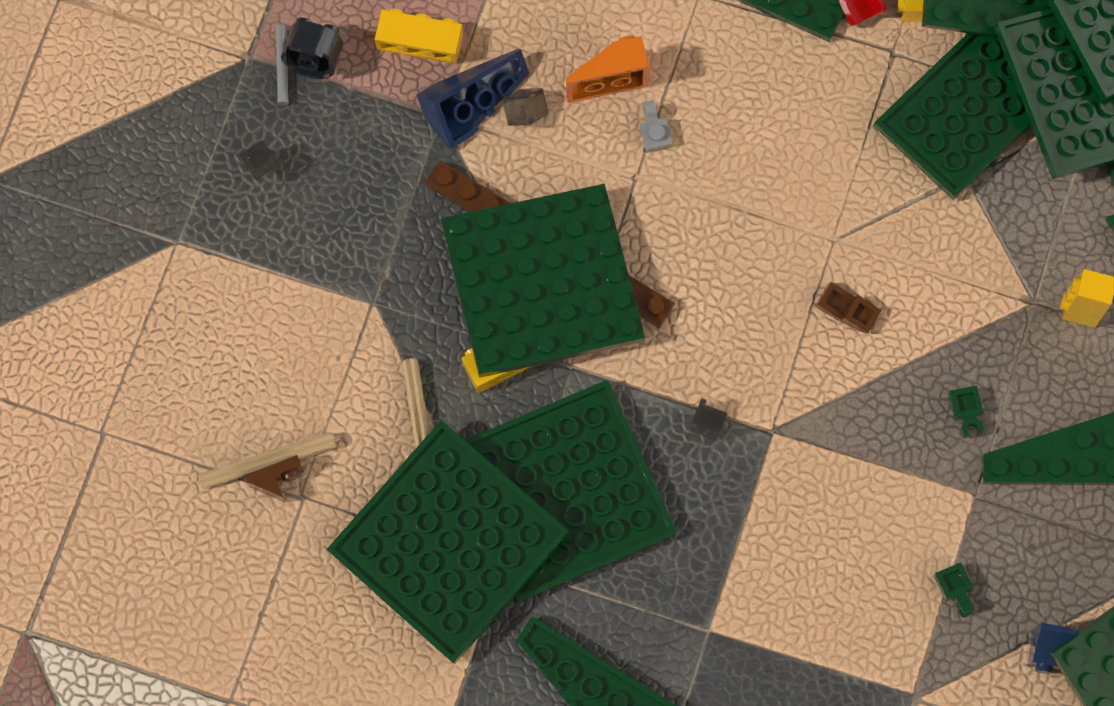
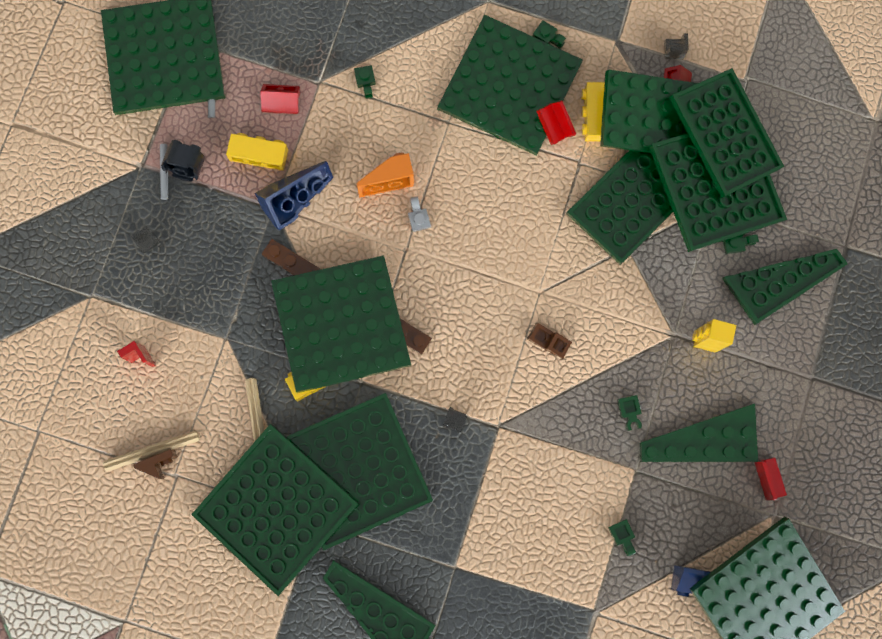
camera: 10 degrees left, 5 degrees up
(244, 318) = (134, 351): none -> red panel
(525, 106) = (330, 201): clear smoke panel -> none

